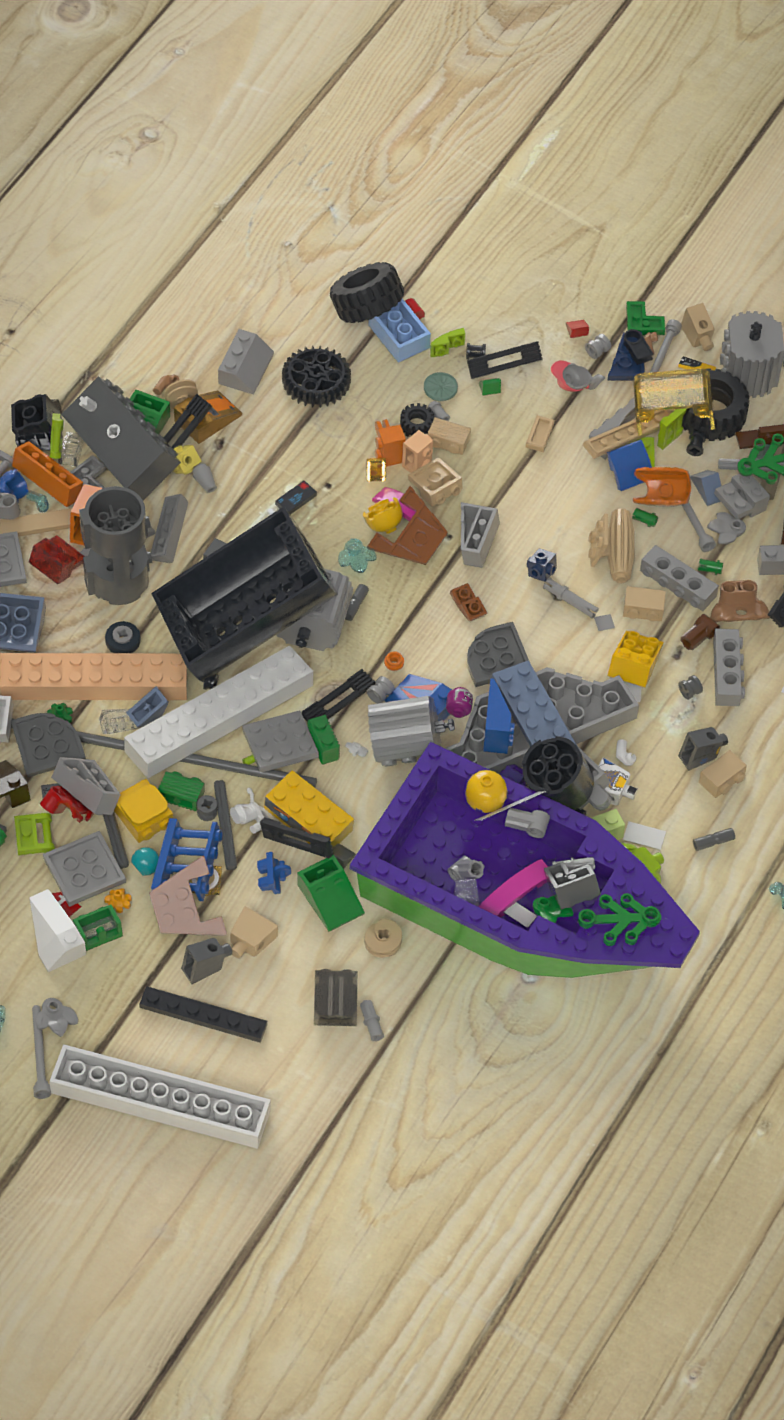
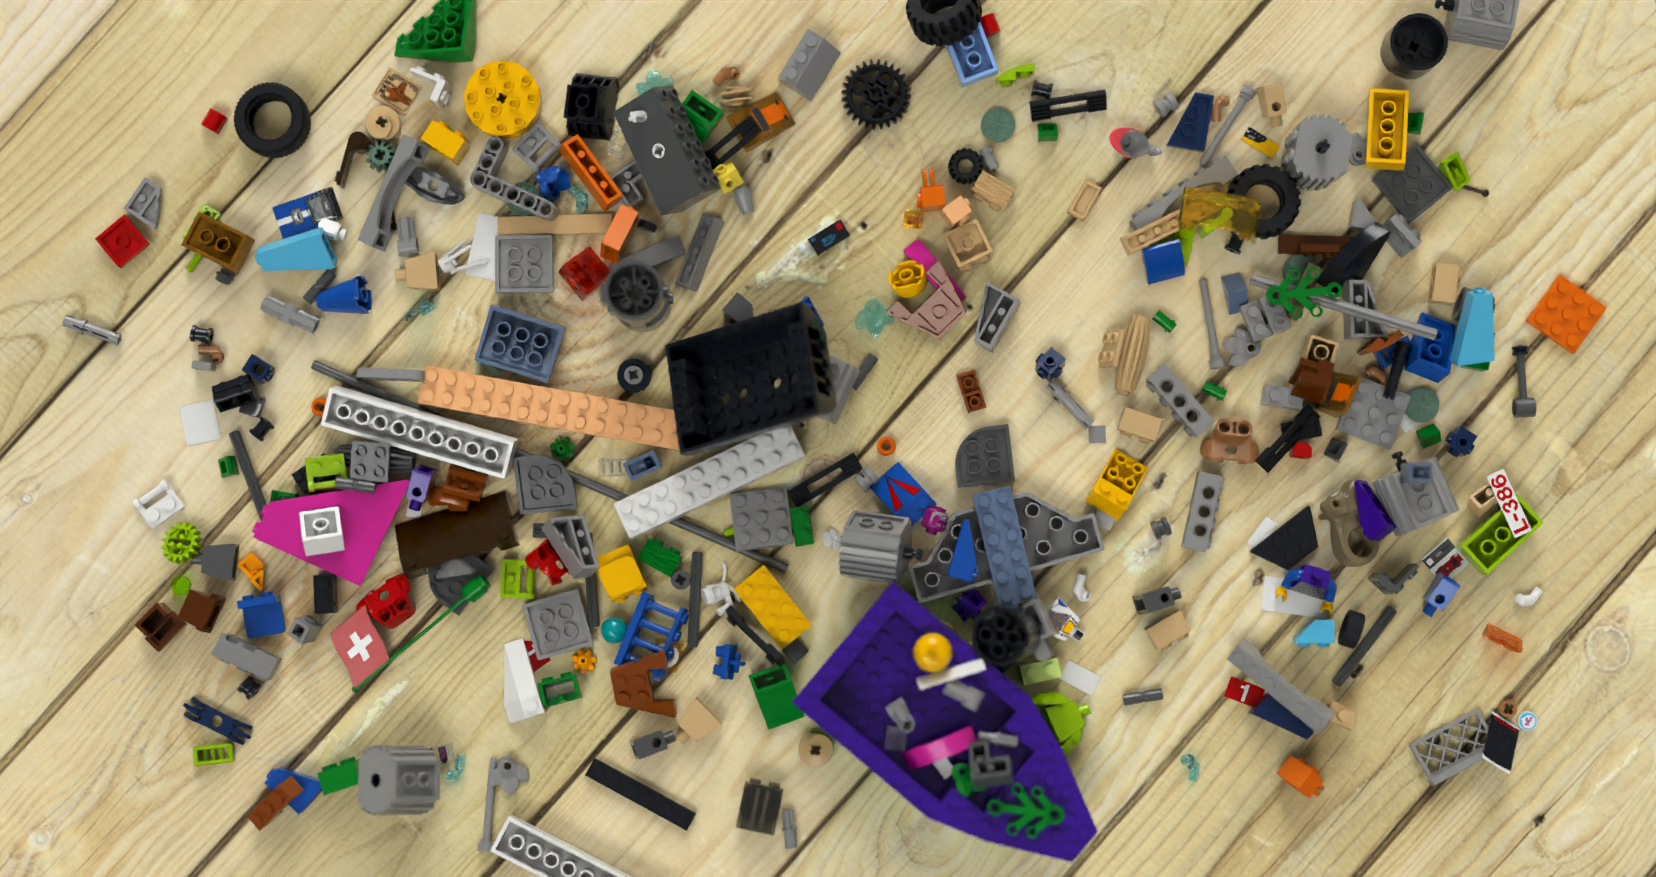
camera: 15 degrees right, 30 degrees up
(56, 441) = (604, 137): lime plate -> none
(577, 328) = (1150, 74): red slope -> none
(638, 350) = (1205, 121): black piece -> none
(639, 321) = (1215, 82): green plate -> none
(664, 486) = (1188, 301): orange animal -> none
(703, 628) = (1188, 464): reddish brown piece -> none

